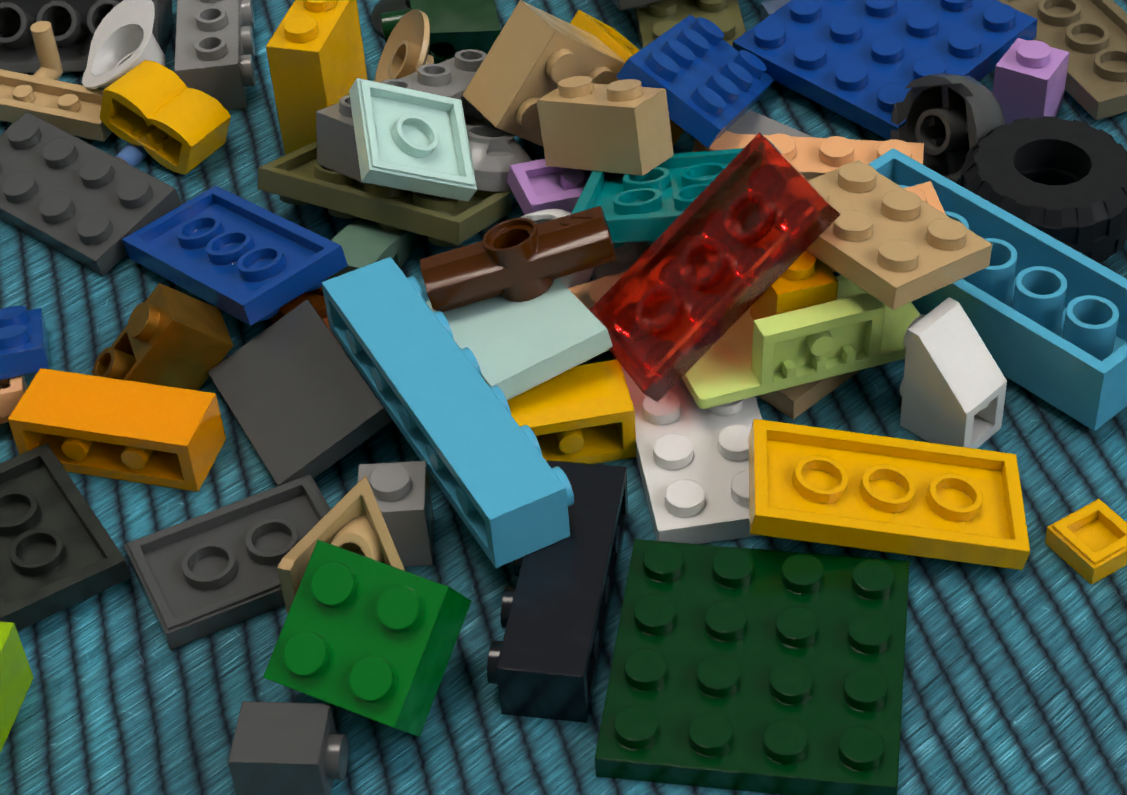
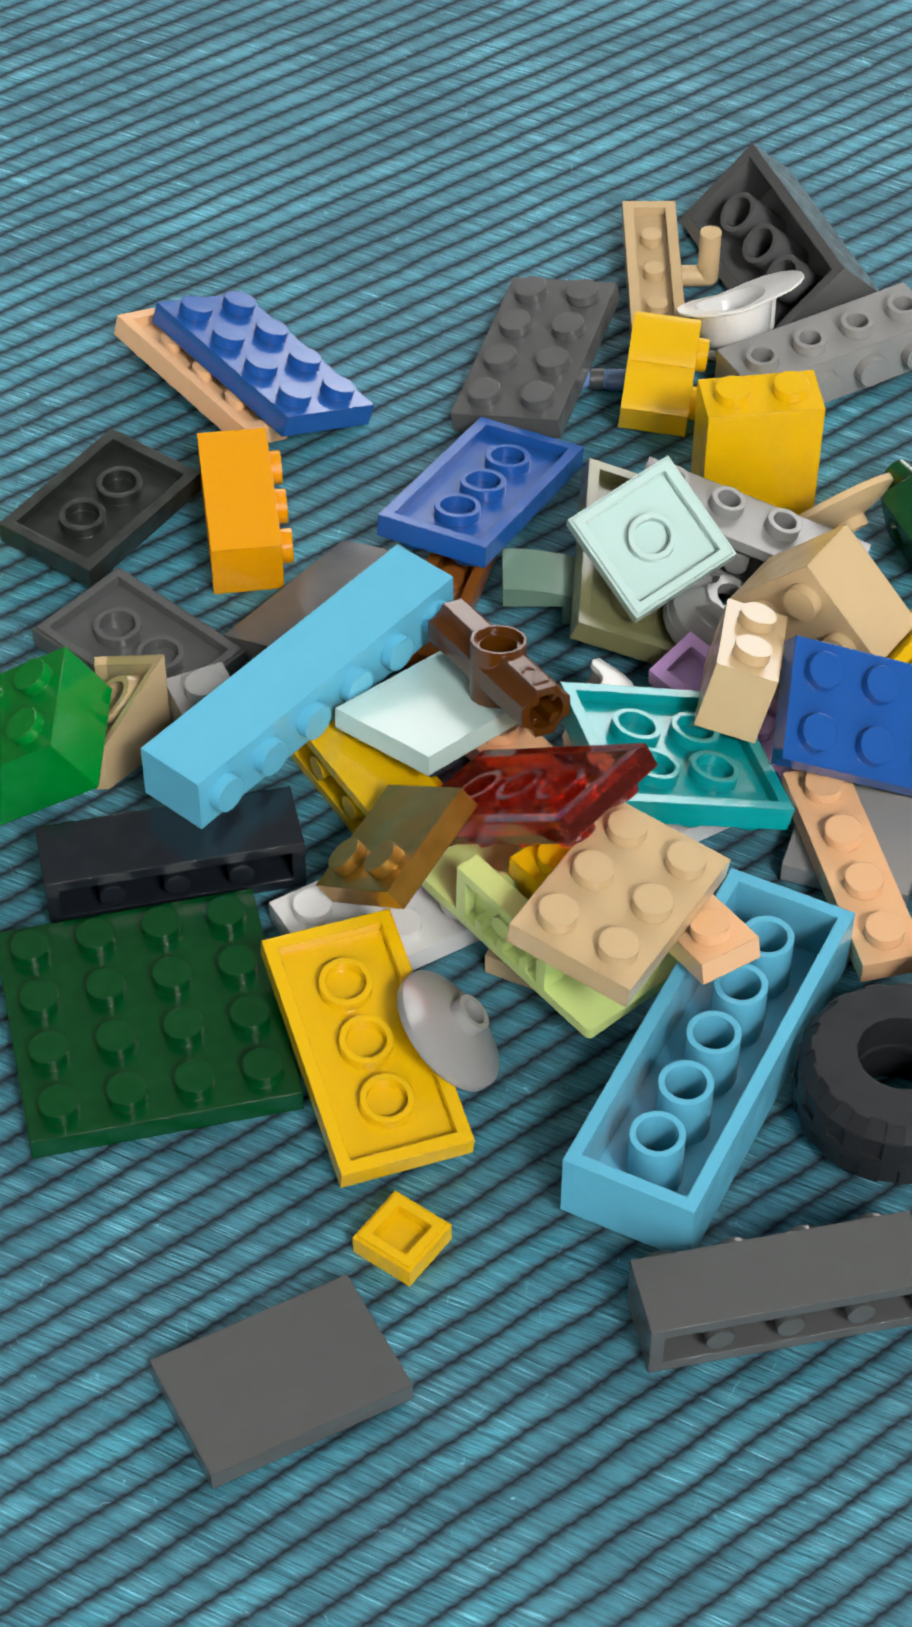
camera: 65 degrees right, 5 degrees up
(167, 342) = (342, 496): pearl gold slope -> none
(696, 383) = (396, 845): none -> pearl gold plate
(895, 419) = (448, 1030): none -> light grey dish
(950, 380) = (532, 1055): white slope -> none

